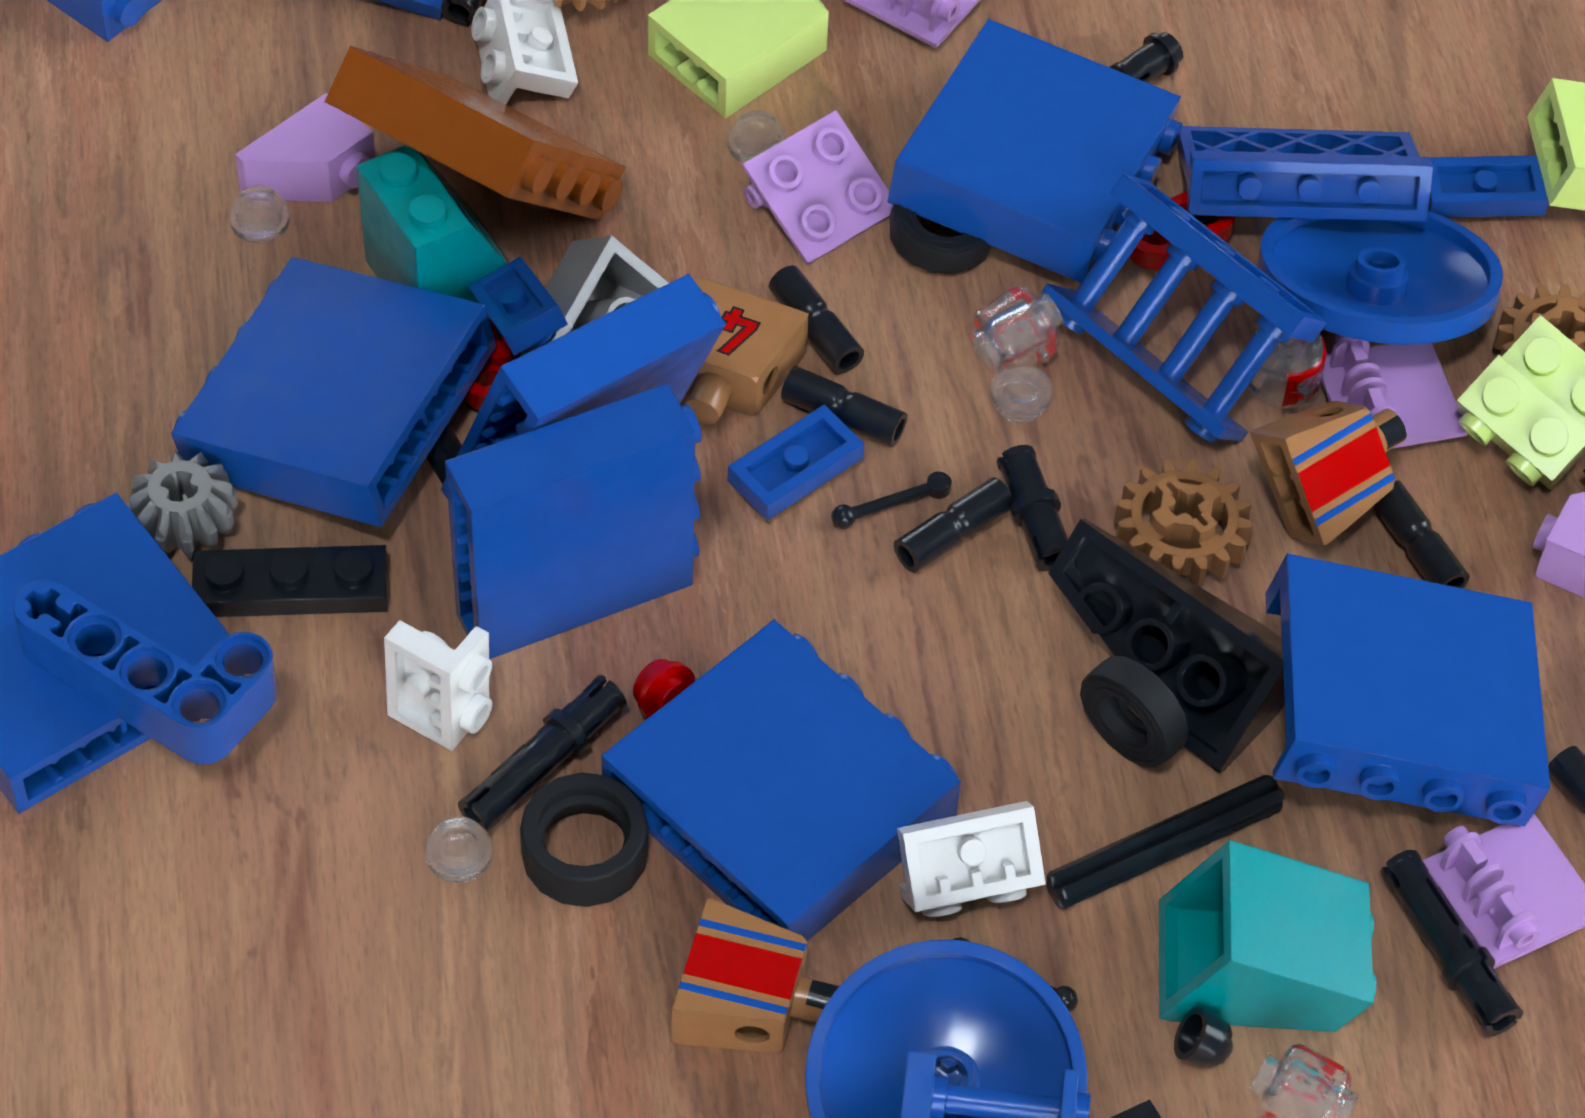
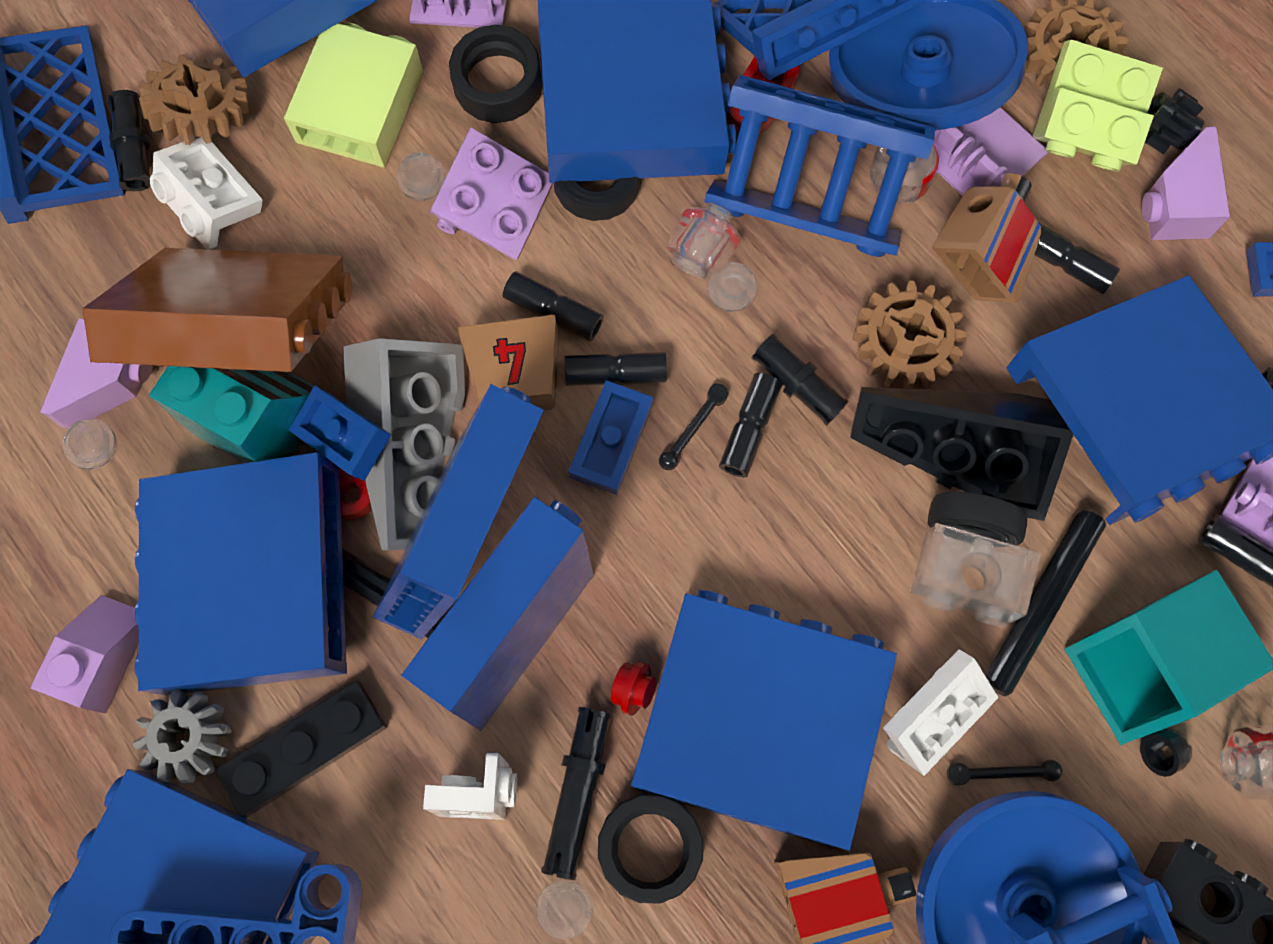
camera: 25 degrees left, 20 degrees up
(135, 394) = (90, 656): none -> lavender slope
(894, 49) = (491, 42): none -> black tyre
(1092, 737) = (1005, 568): none -> clear brick

